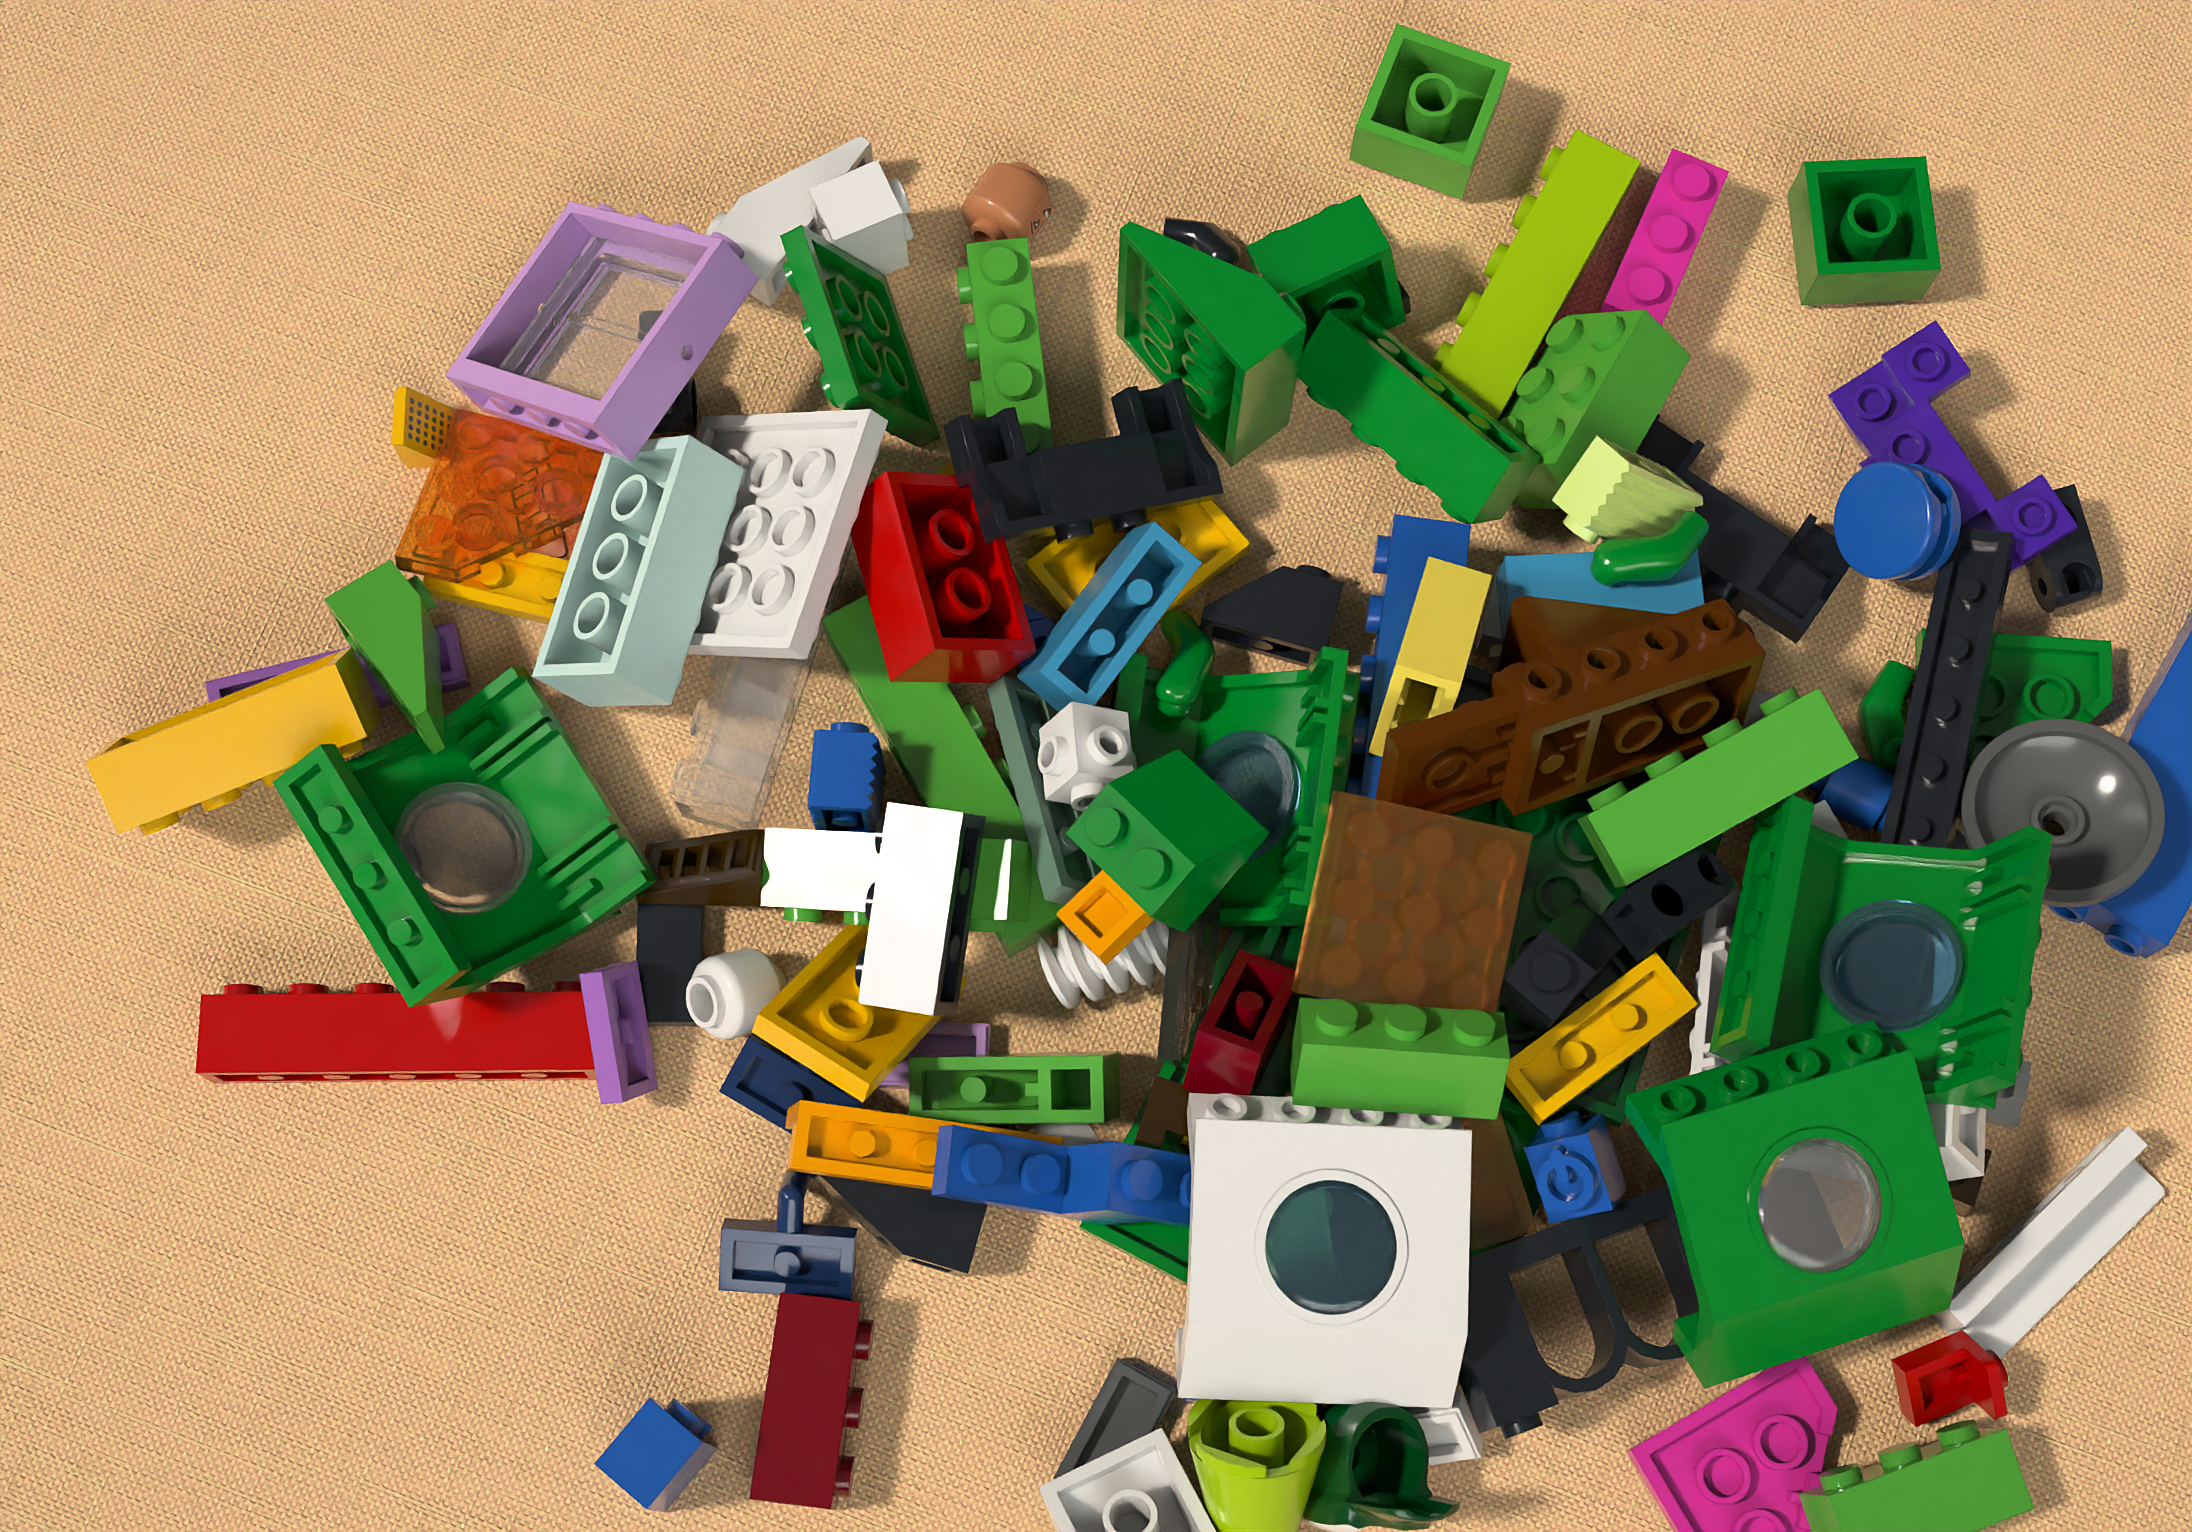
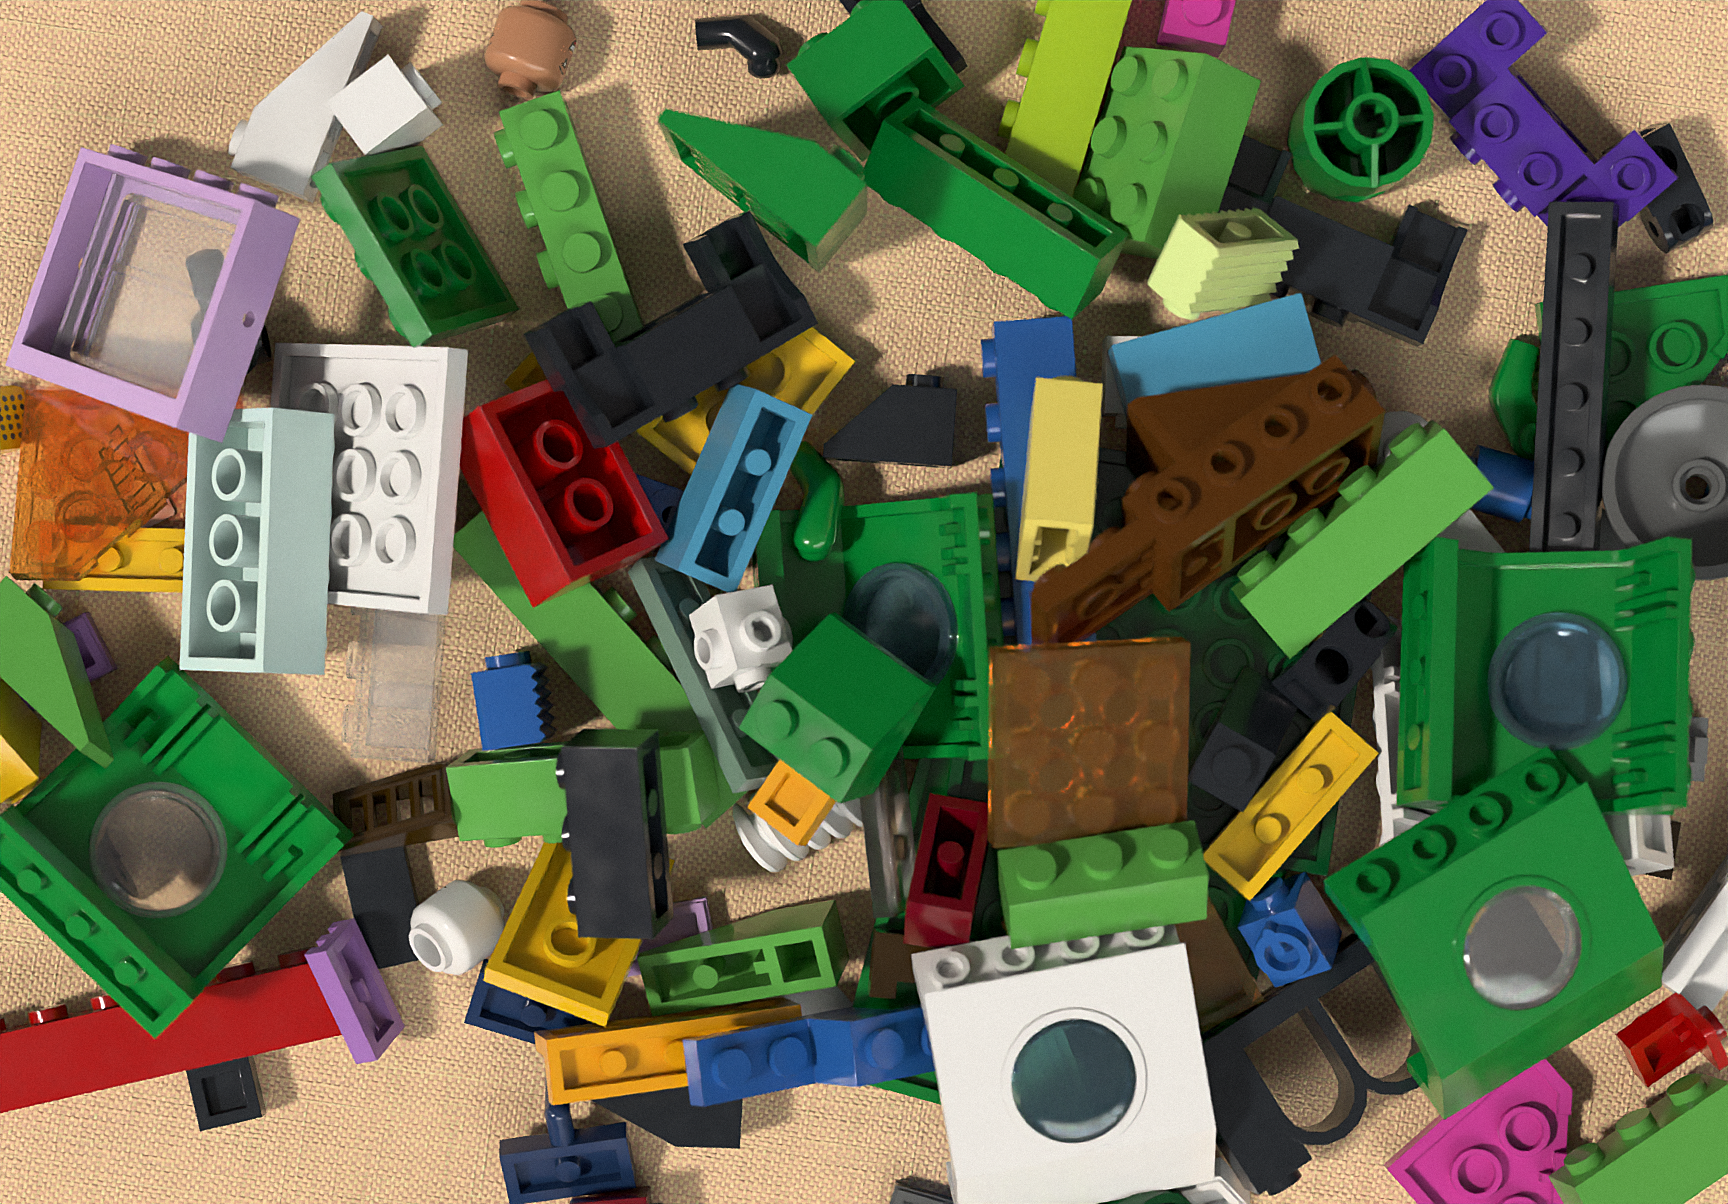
camera: 10 degrees left, 15 degrees up
(462, 1110) = (226, 1093): none -> black plate
(1649, 556) = (1257, 322): green arm -> none
(1776, 426) = (1360, 130): none -> green cylinder
(1897, 521) = (1496, 209): blue head -> none

